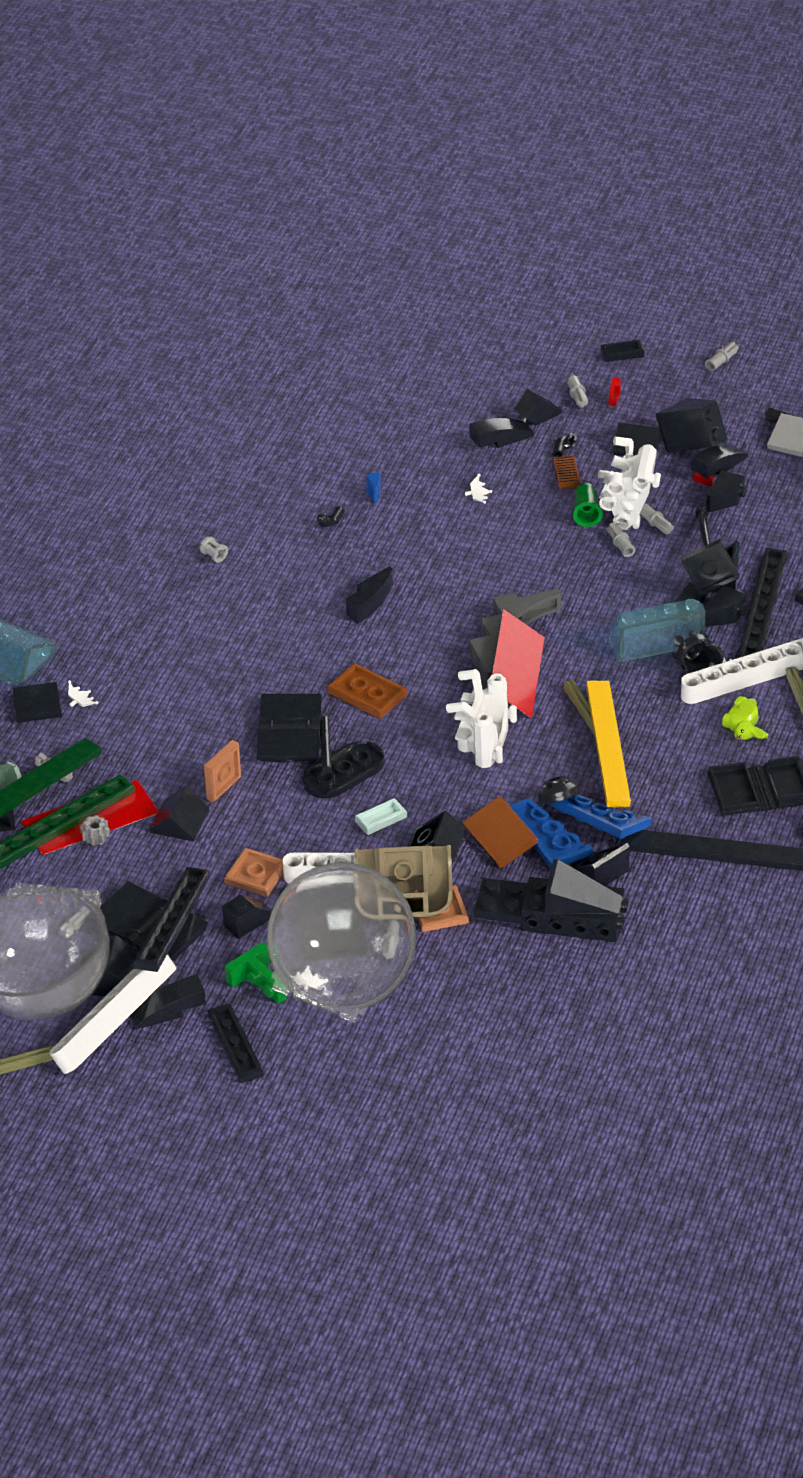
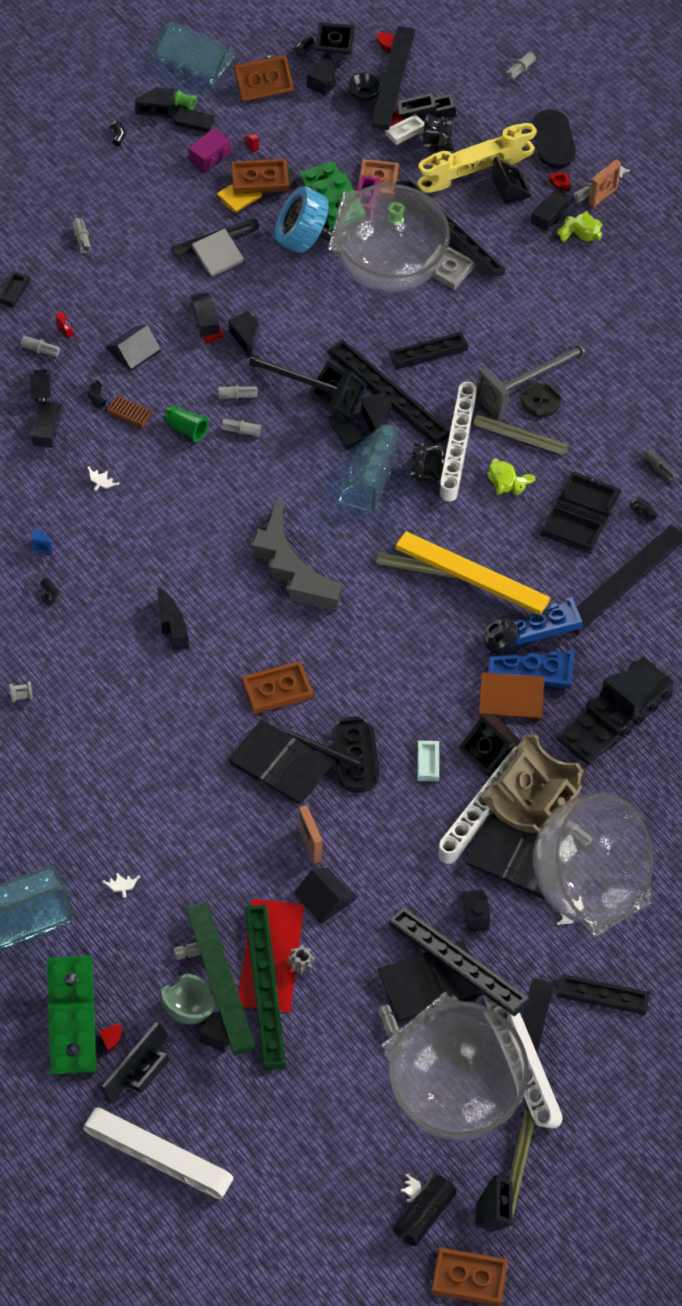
camera: 60 degrees left, 15 degrees up
(37, 702) = (103, 918): black tile -> none
(253, 966) = (547, 937): green bracket -> none
(255, 872) = (427, 877): nougat tile -> none
(486, 721) = (389, 638): white piece -> none
(519, 661) = (337, 575): sticker -> none
(607, 864) = (593, 655): black slope -> none
(628, 490) = (224, 379): white piece -> none
(691, 425) = (167, 303): black slope -> none

